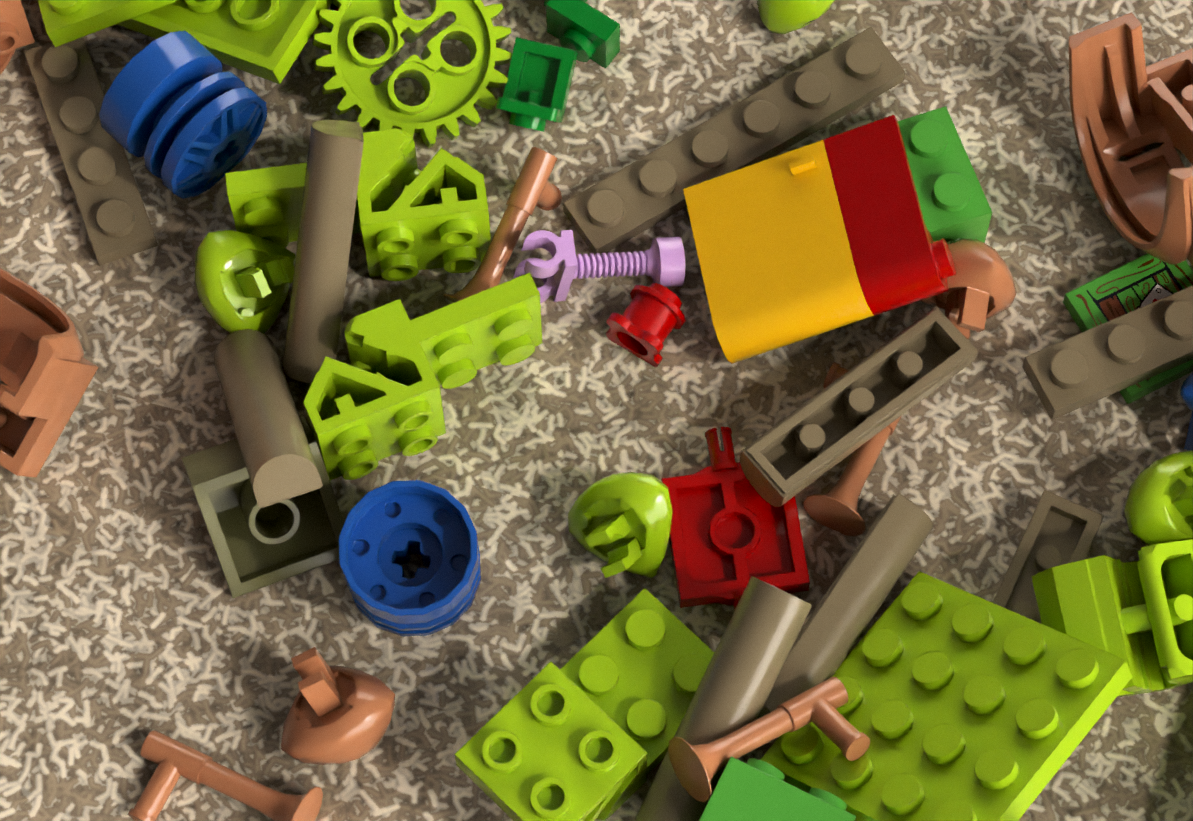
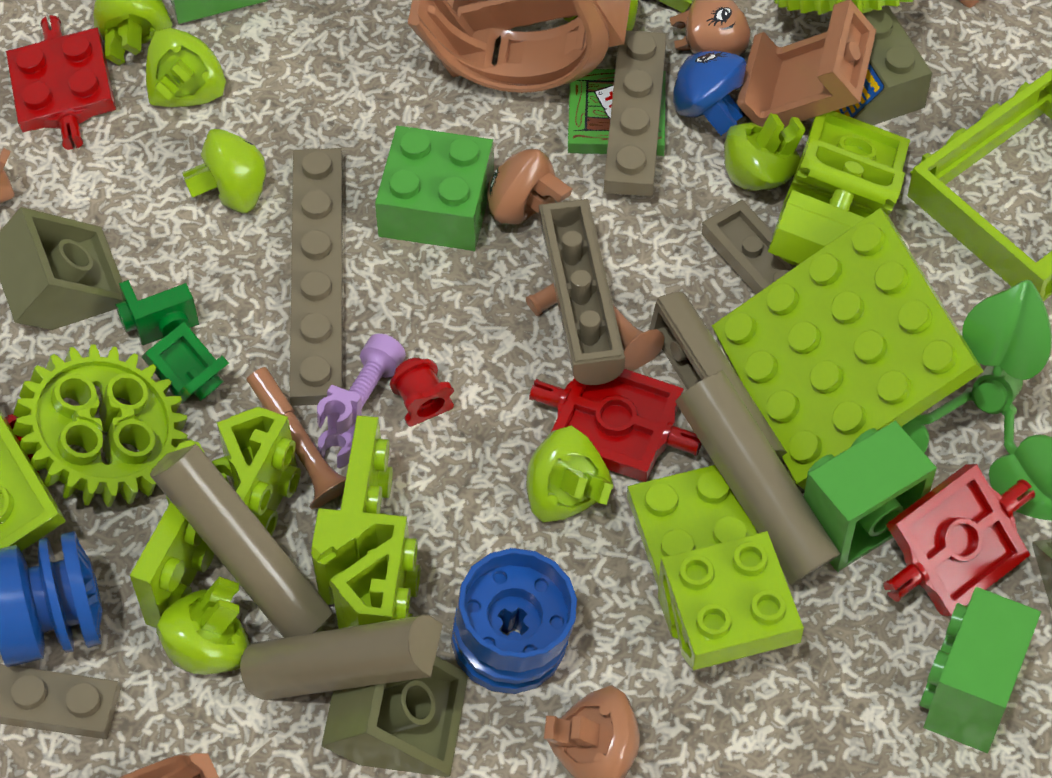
camera: 60 degrees left, 10 degrees down
(700, 763) = (800, 502): nougat piece -> none
(814, 240) = (439, 249): yellow door -> none

